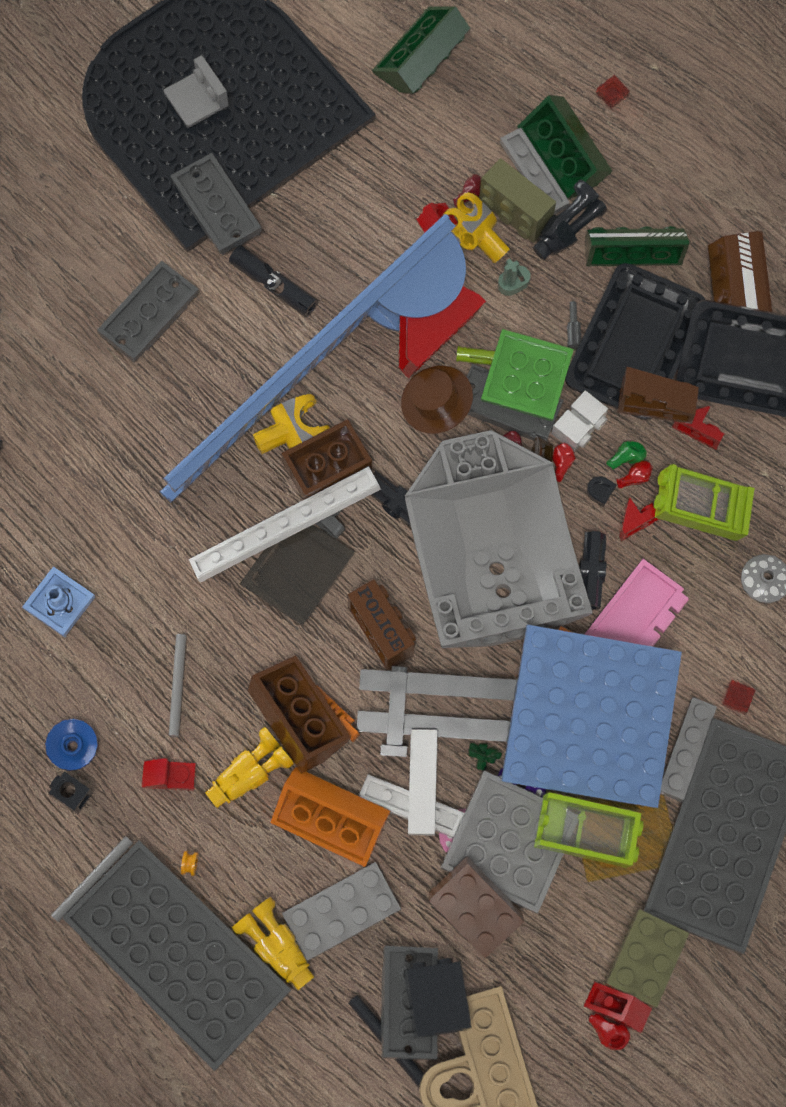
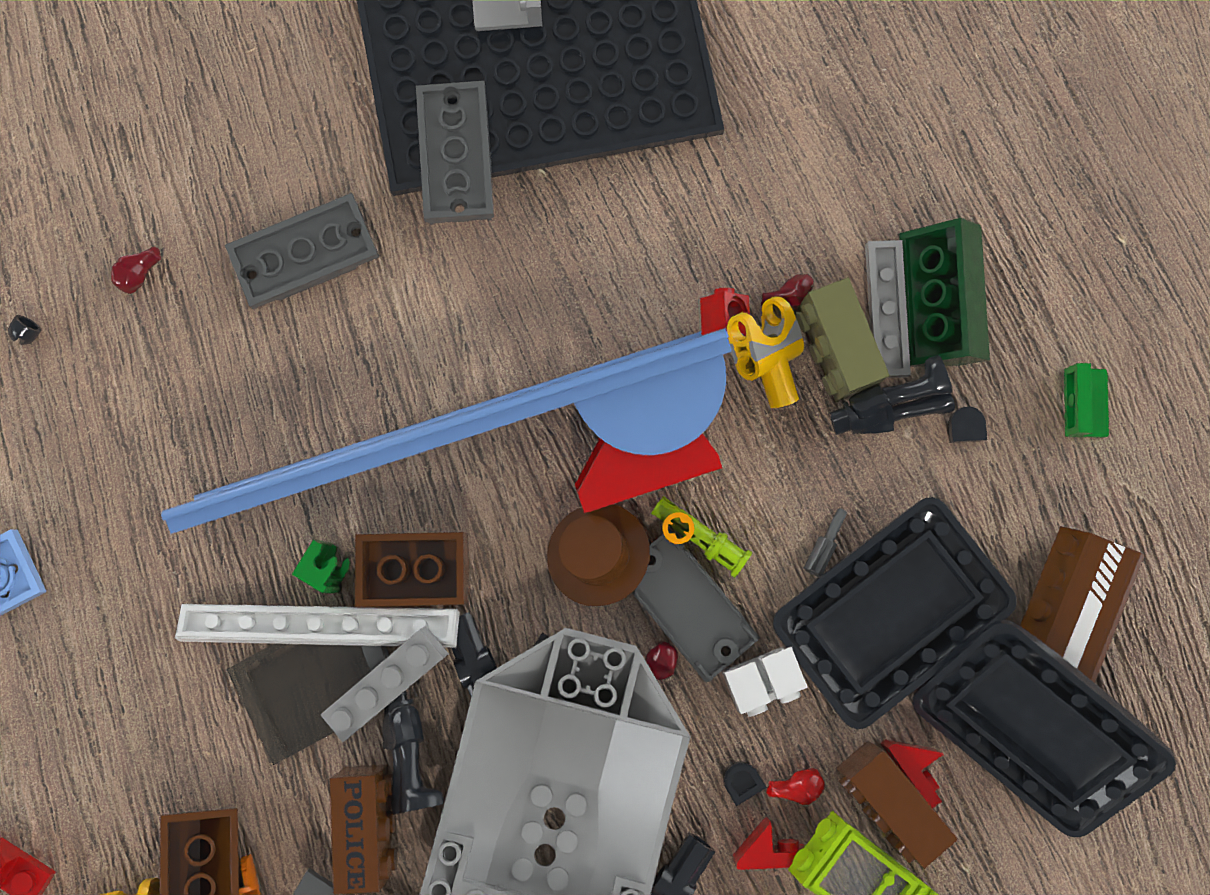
camera: 30 degrees right, 10 degrees up
(41, 375) = (131, 270): none -> dark red animal
(177, 685) = (84, 760): light grey bar -> none
(261, 272) = (475, 285): black piece -> none
(270, 489) = (319, 566): none -> green hinge
(288, 426) = (393, 497): yellow connector -> none
(348, 533) = (384, 683): none -> light grey plate
(376, 564) = (402, 736): none -> black piece
(422, 48) = (832, 68): dark green slope -> none
(478, 364) = (684, 518): none -> light orange bush
(509, 282) = (775, 442): sand green piece -> none
(527, 375) = (726, 589): bright green plate -> none
(543, 448) = (693, 695): dark brown slope -> none
(563, 459) = (717, 717): red animal -> none
(612, 91) = (1049, 249): clear red plate -> none
(621, 216) = (967, 425): none -> black tile
(628, 452) = (804, 754): green animal -> none
(636, 246) = (966, 479): dark green slope -> none
(657, 397) = (879, 715): reddish brown wedge -> none
(684, 169) = (1086, 401): none -> green panel
(697, 447) = (895, 805): none -> reddish brown brick

